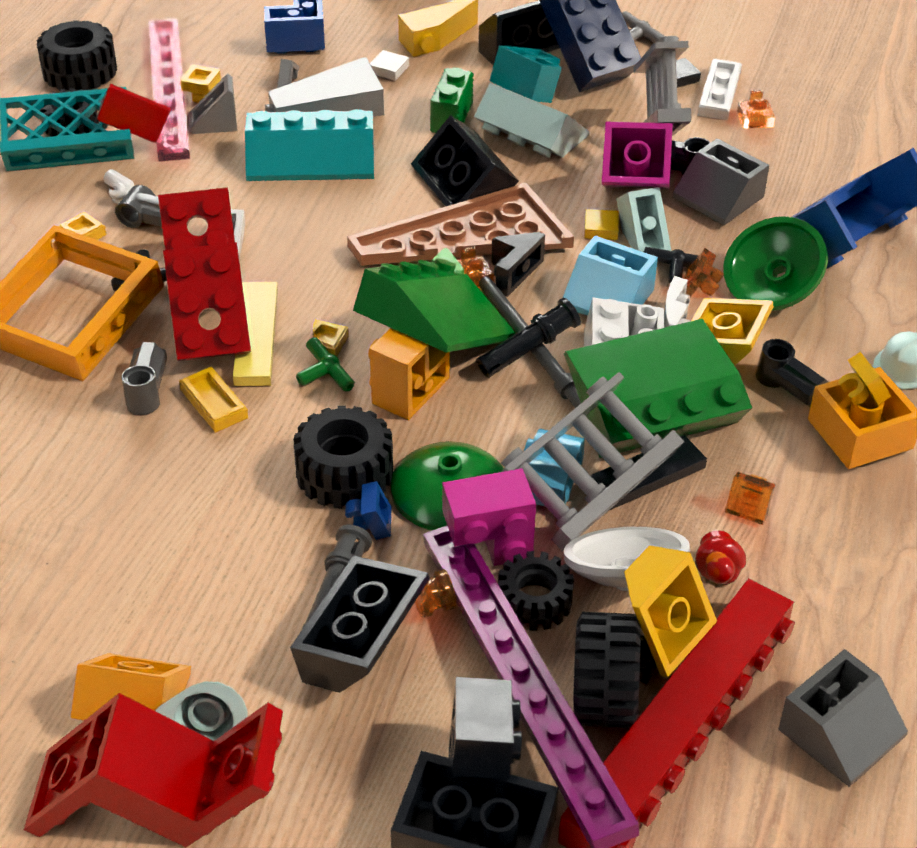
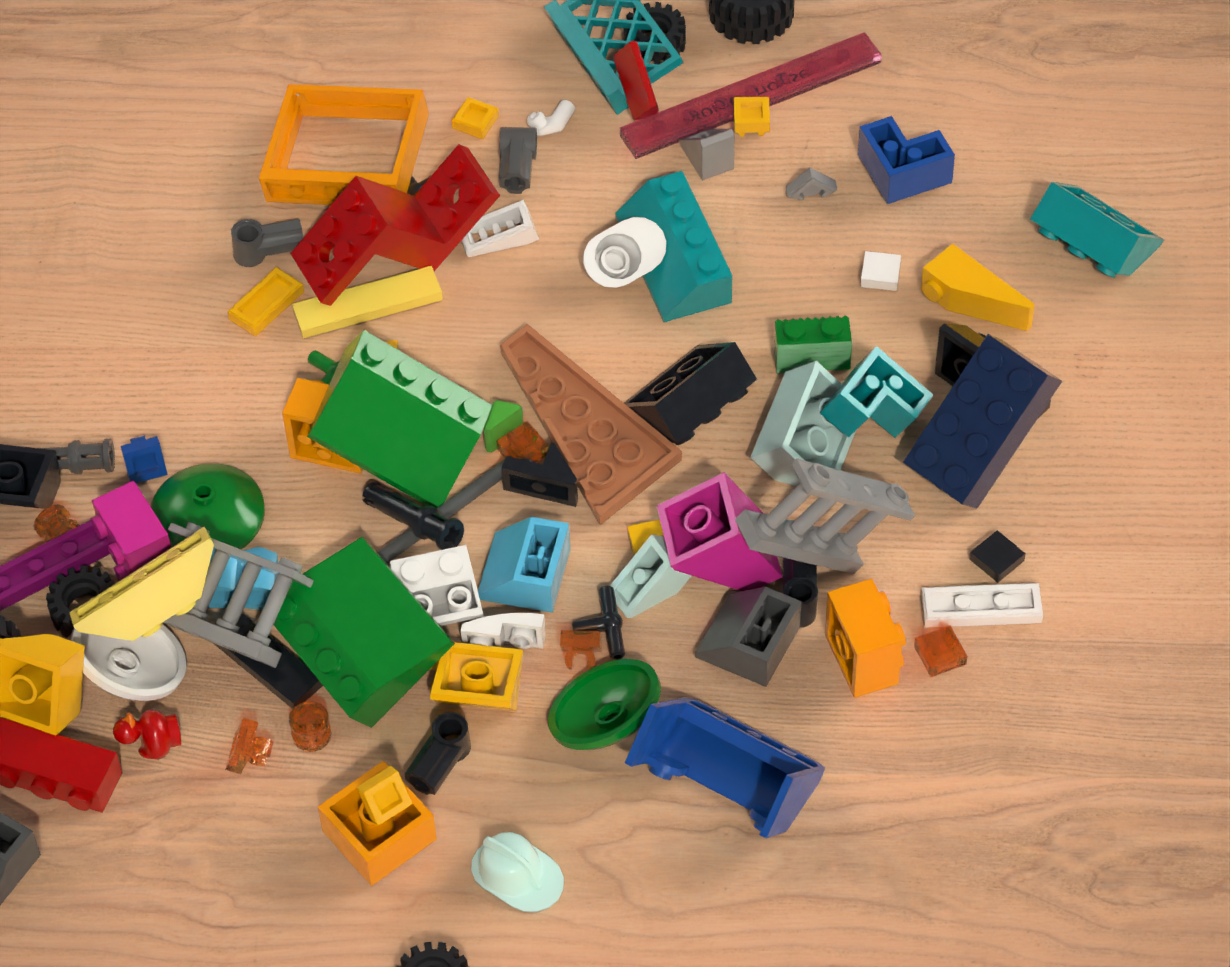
camera: 75 degrees right, 10 degrees up
(307, 167) = (624, 252): none -> white piece
(336, 89) = (777, 236): slope -> none
(341, 453) = (195, 392): black tyre -> none
(578, 492) = (149, 594): none -> light yellow wedge
(641, 28) = (1078, 496): light grey piece -> none
(736, 451) = (305, 717): none -> clear orange wheel
(754, 122) = (864, 637): none -> light orange brick

